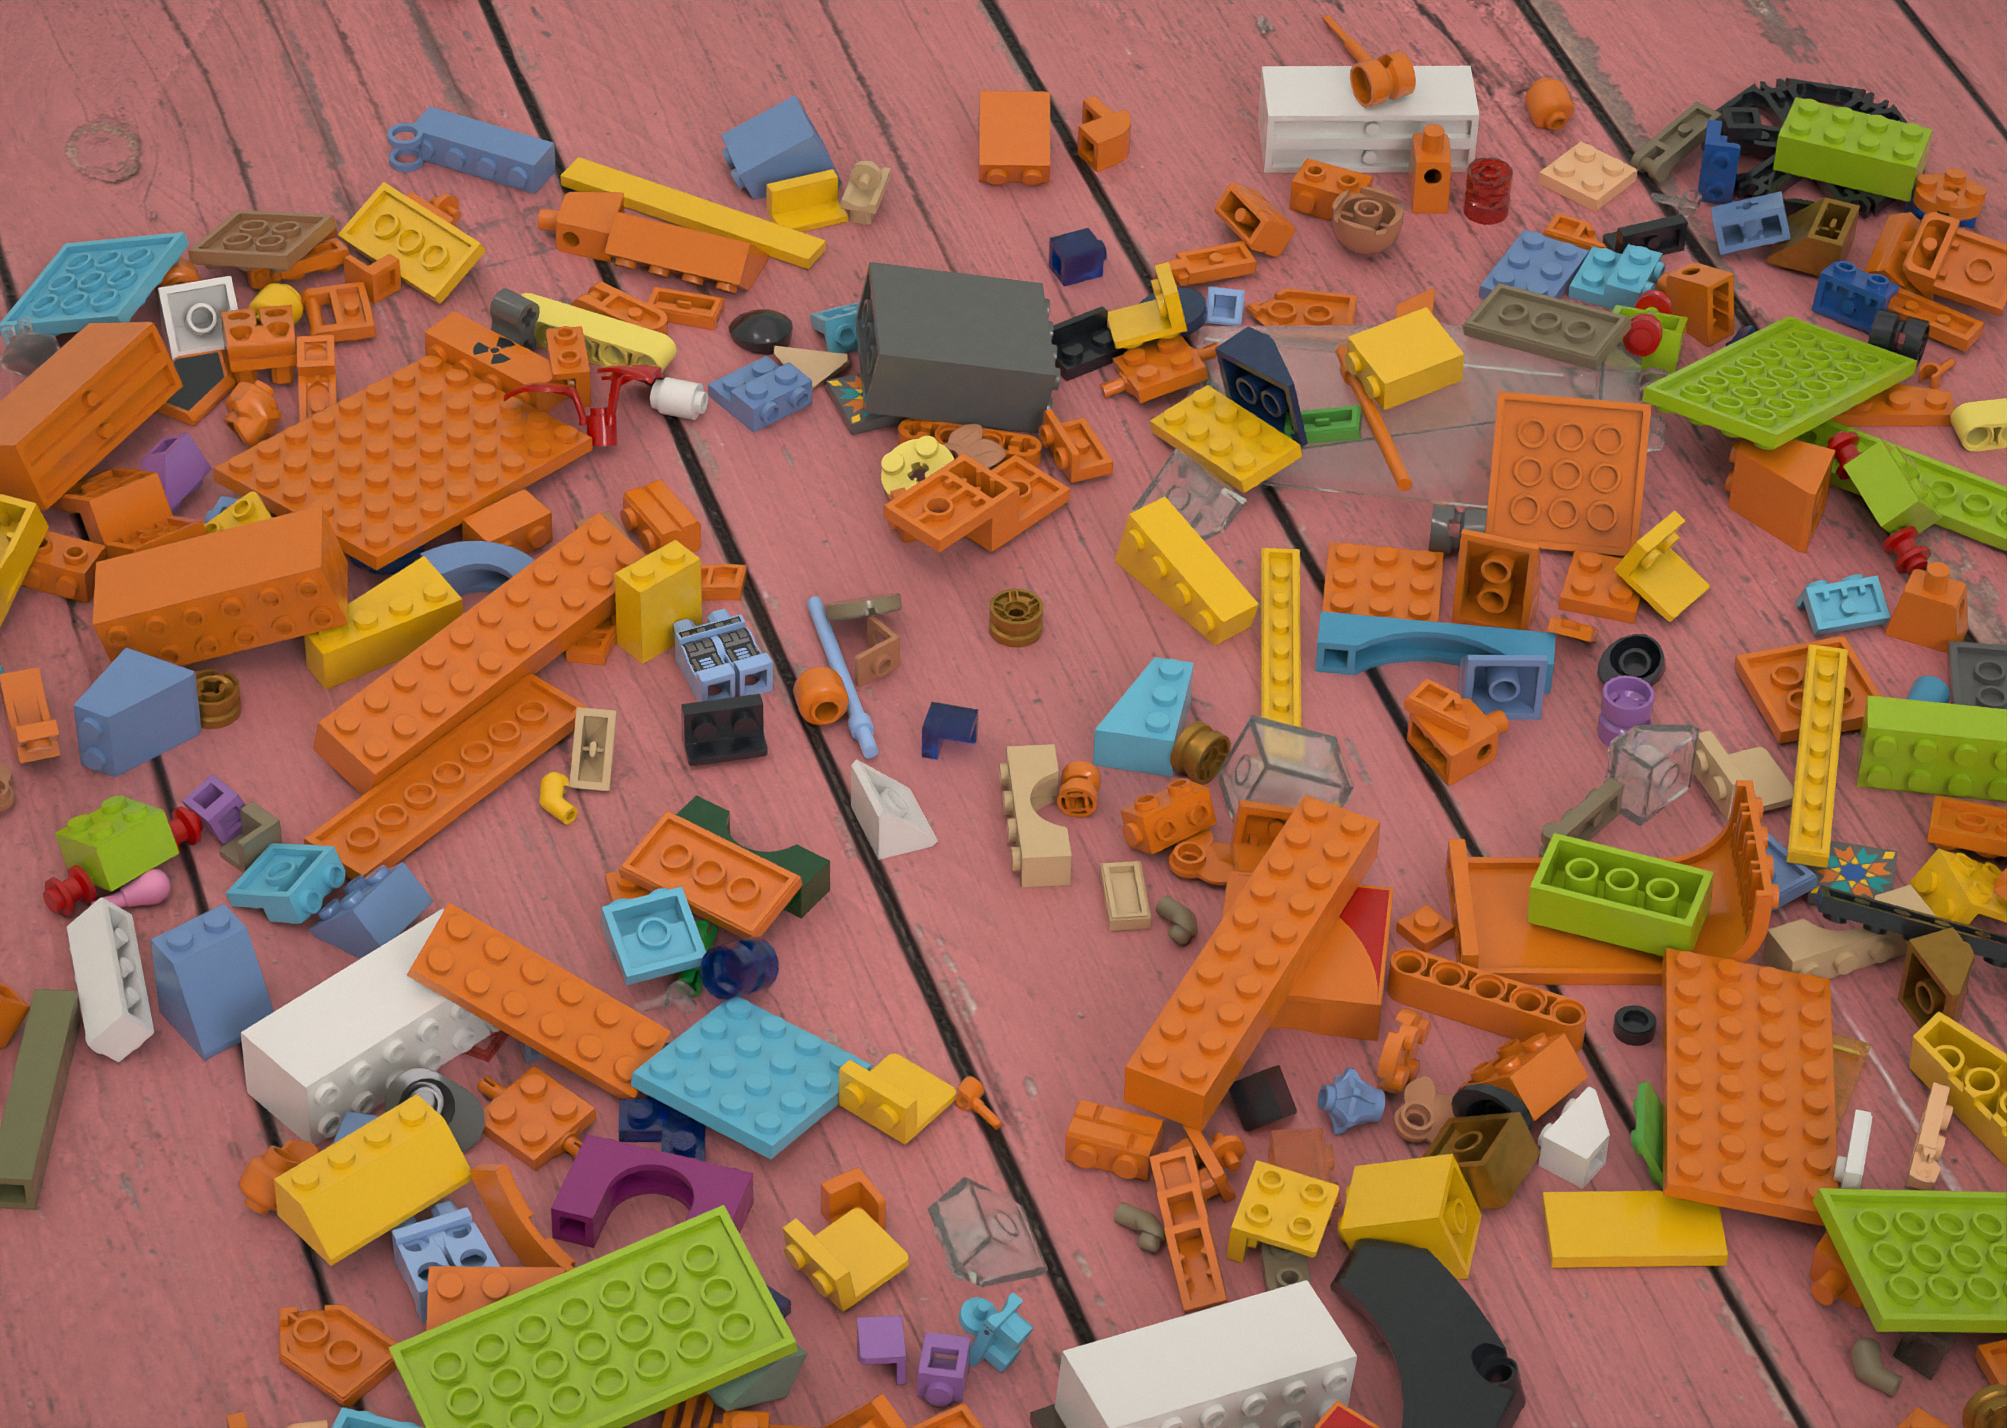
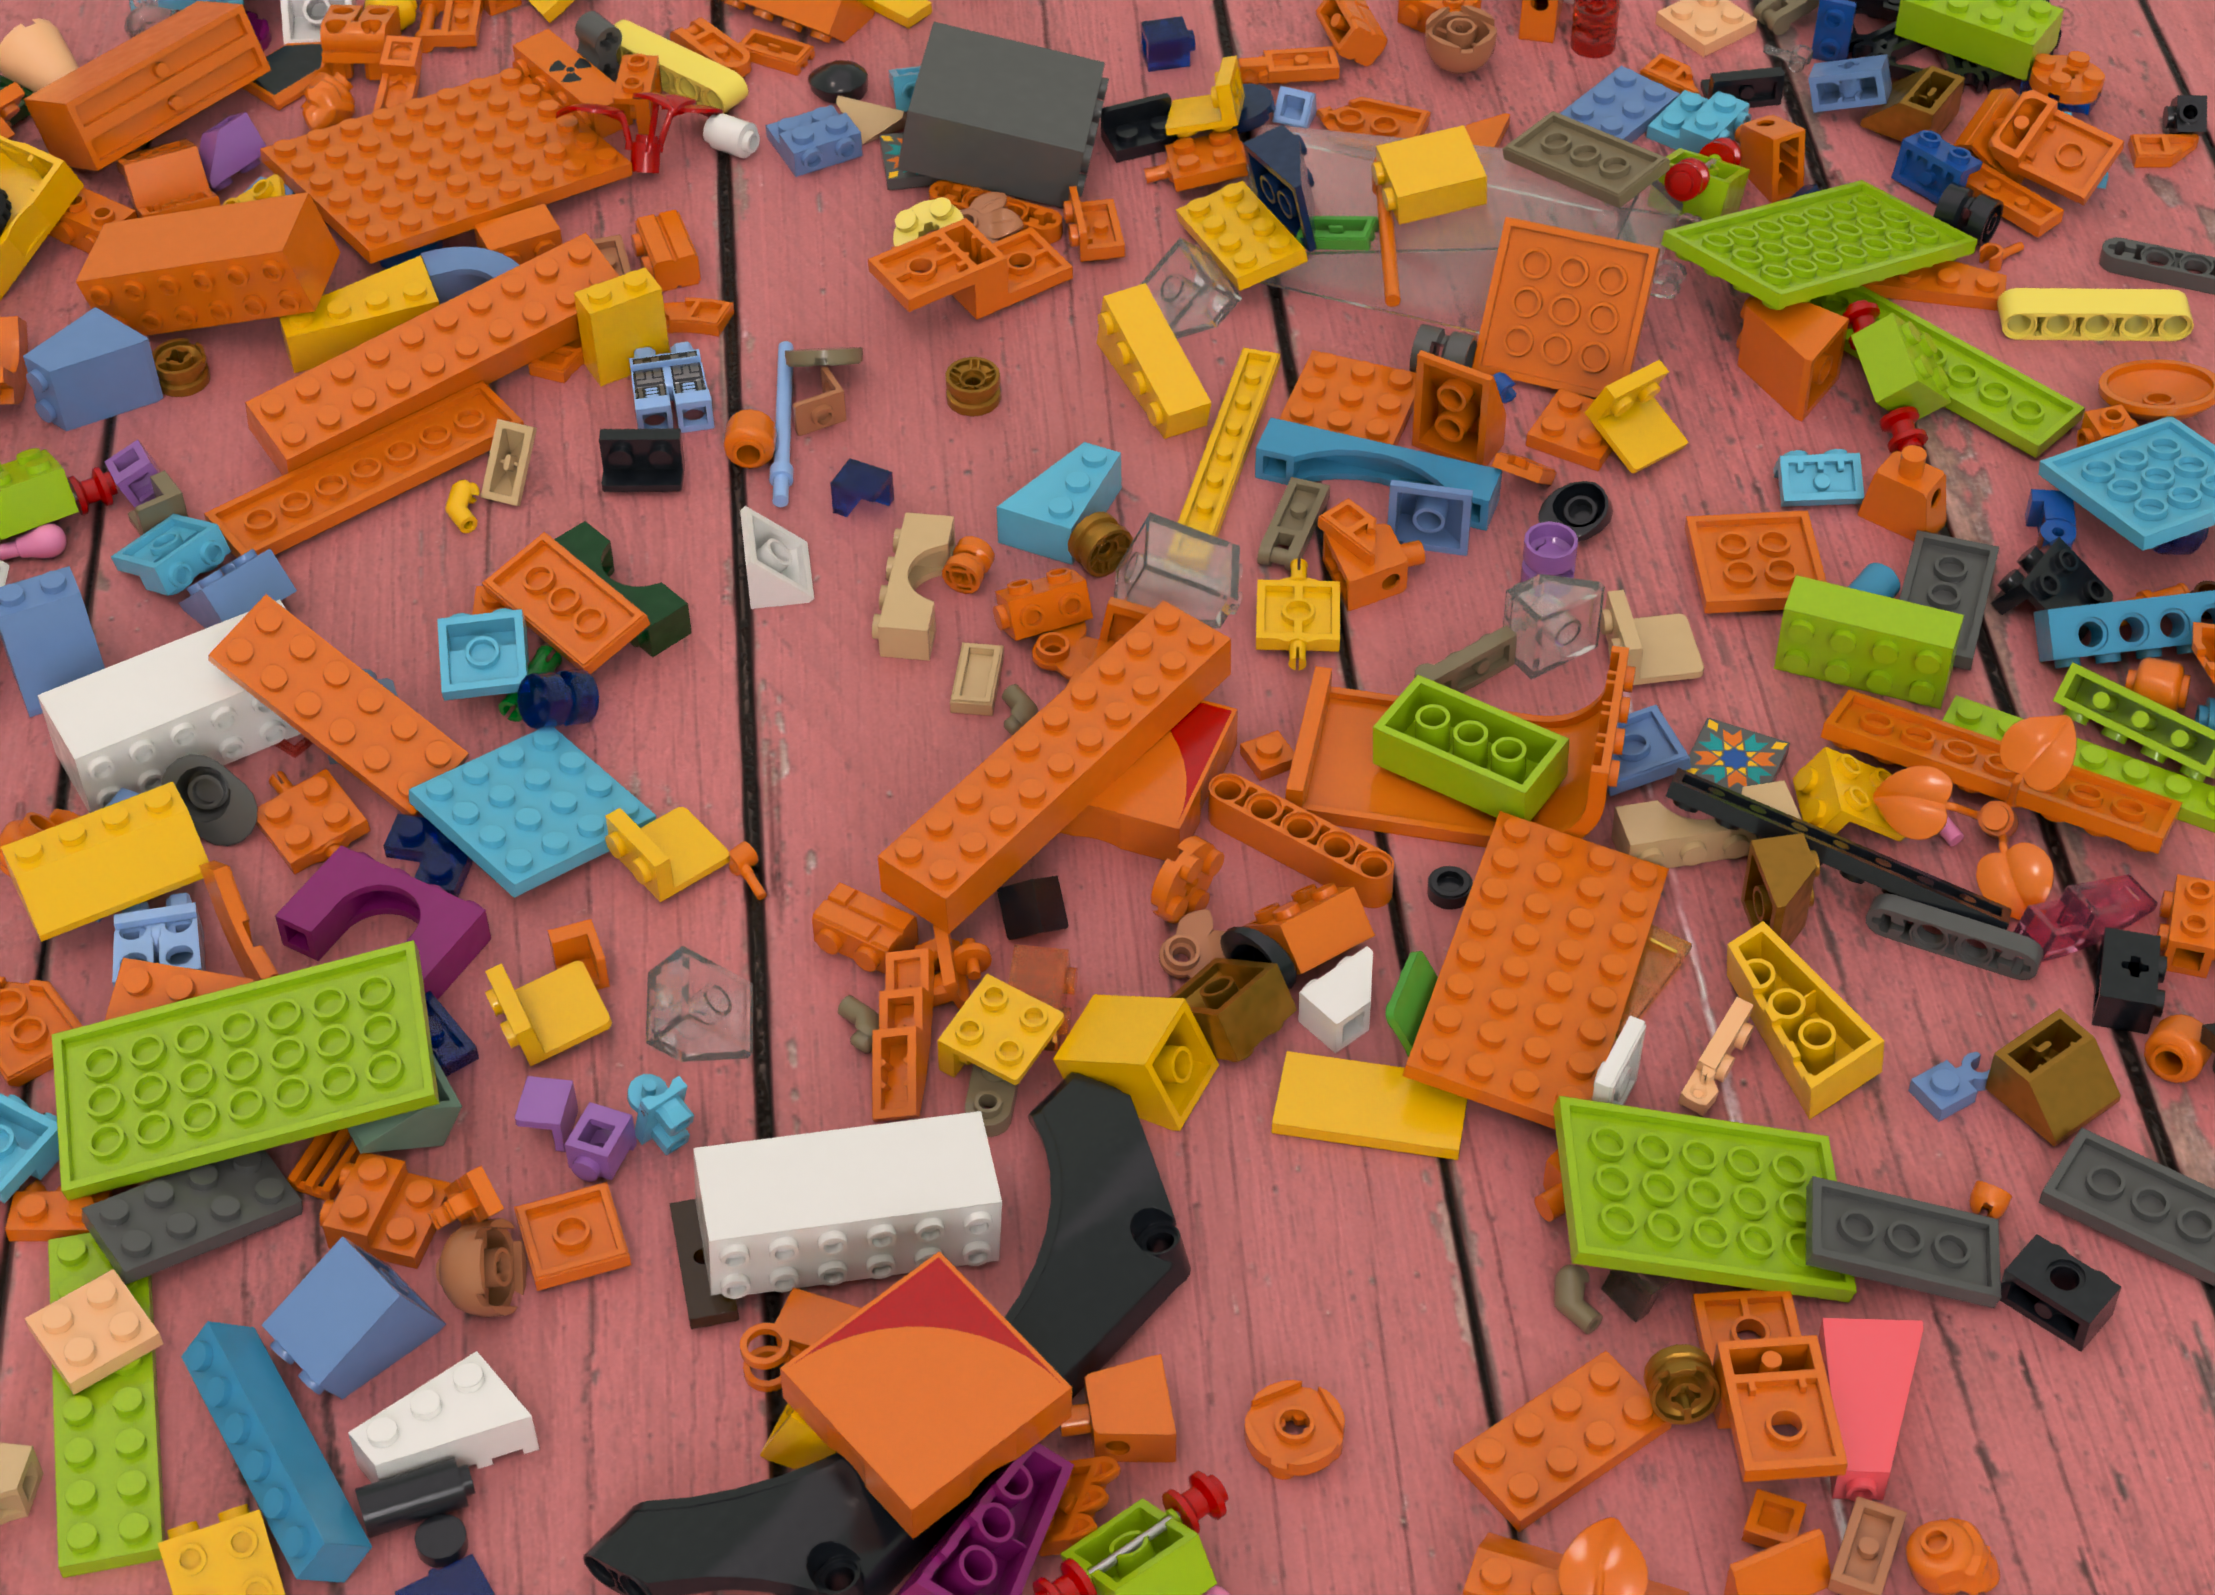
camera: 15 degrees right, 5 degrees up
(677, 995) = (494, 717): clear hand -> none
(1350, 1101) = (1119, 925): medium blue rock -> none
(1372, 709) = (1293, 522): none -> dark tan plate
(1408, 794) = (1298, 614): none -> yellow plate
(1817, 756) = (1732, 633): yellow tile -> none

